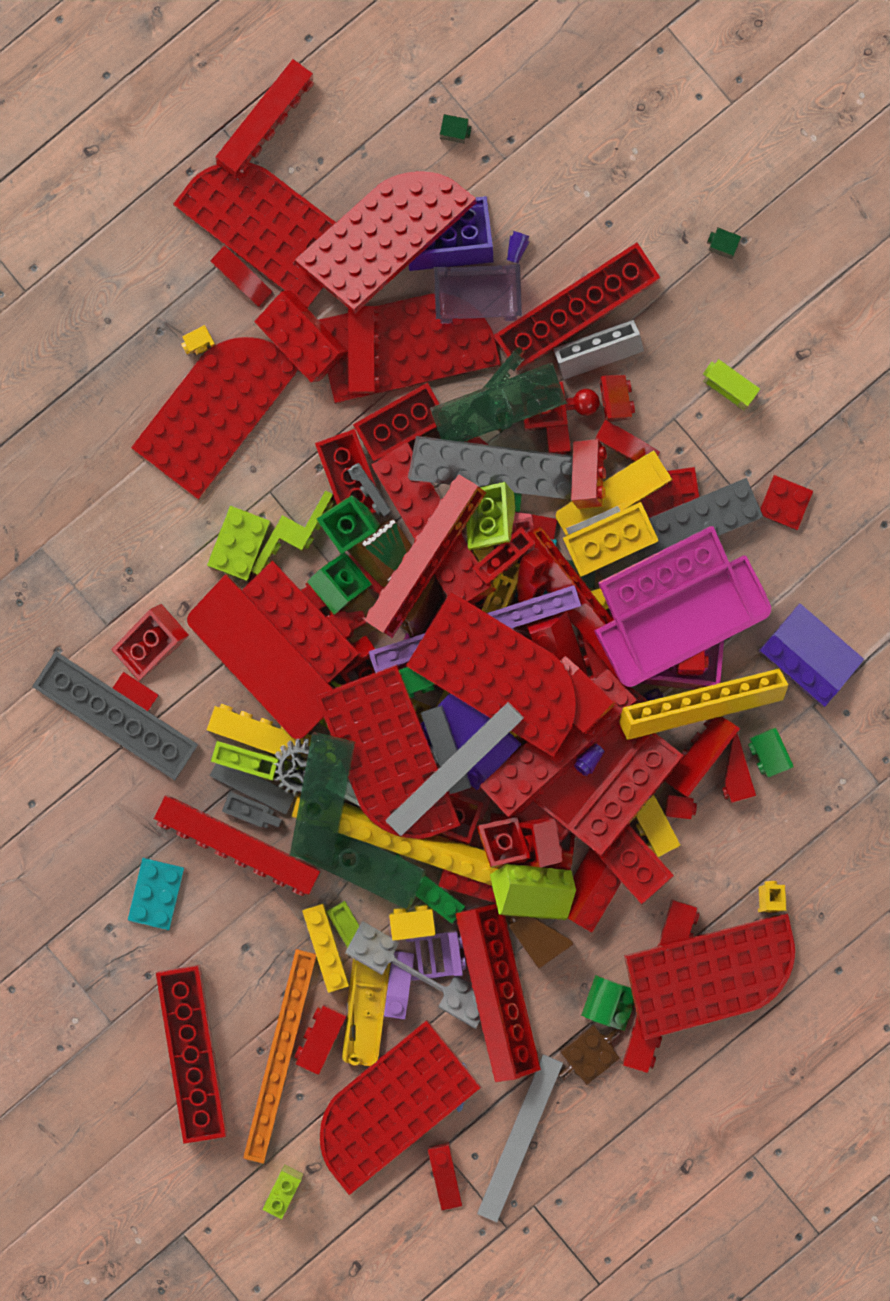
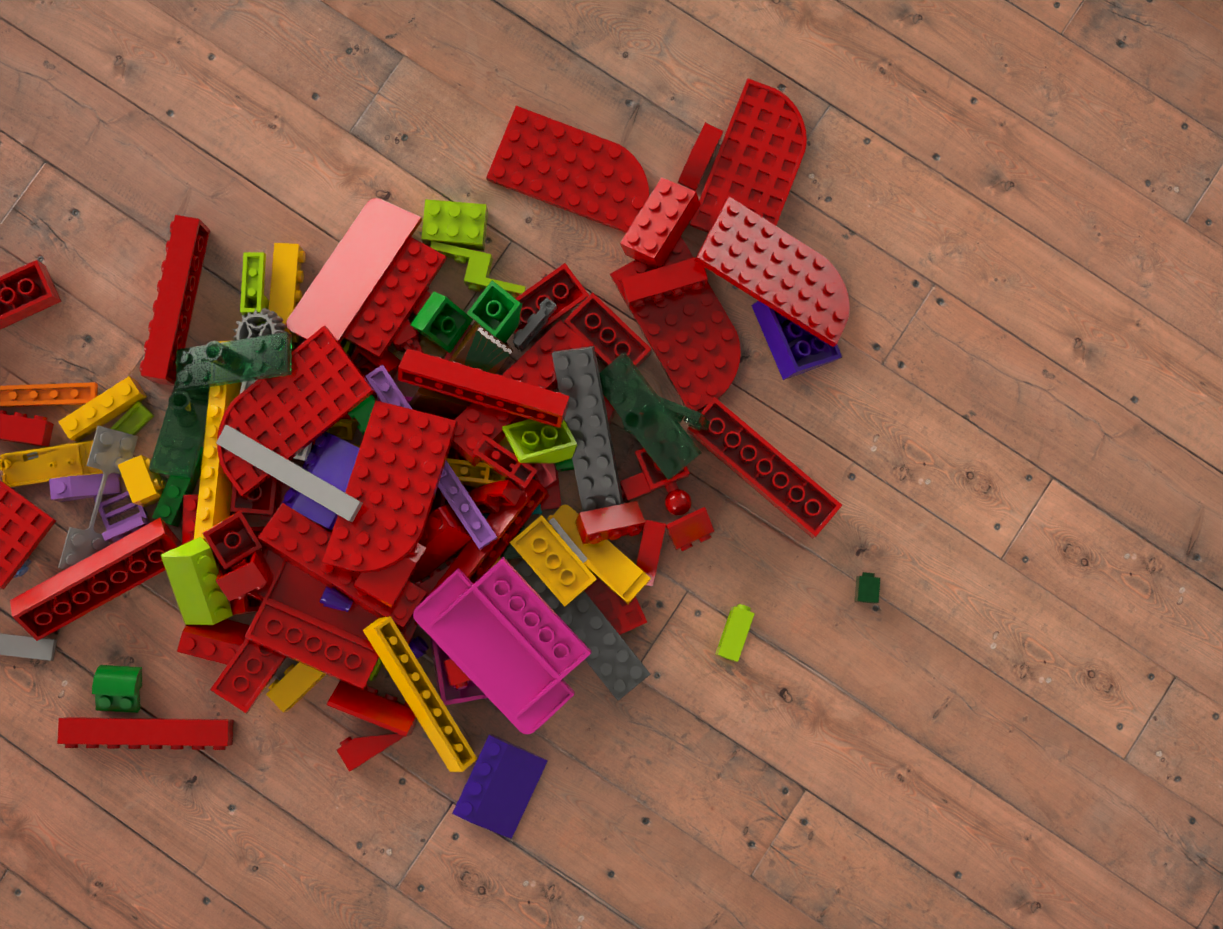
camera: 70 degrees right, 5 degrees down
(115, 715) = (268, 161): dark grey plate -> none
(135, 691) = (295, 173): red tile -> none
(150, 641) = (344, 172): red slope -> none
(156, 893) = (116, 243): teal plate -> none
(197, 341) = (630, 135): yellow brick -> none
(250, 811) = (212, 306): dark grey hinge -> none
(254, 787) = (232, 307): dark grey tile -> none
(264, 118) = (850, 135): red brick -> none
(443, 741) = (315, 457): dark grey tile -> none
(455, 129) = (895, 309): dark green brick -> none
(477, 292) = (749, 370): clear purple windscreen -> none
(517, 245) = (804, 397): dark purple cone -> none
(539, 939) = (156, 606): reddish brown slope -> none
(589, 1054) = (65, 684): reddish brown plate -> none
(598, 349) = (730, 499): light grey brick -> none
(680, 807) = (317, 702): red brick -> none
(710, 975) = (165, 778): red plate -> none
(770, 752) = (395, 773): green slope -> none
(778, 897) = (253, 821): yellow brick -> none
(785, 502) = (639, 719): red plate -> none

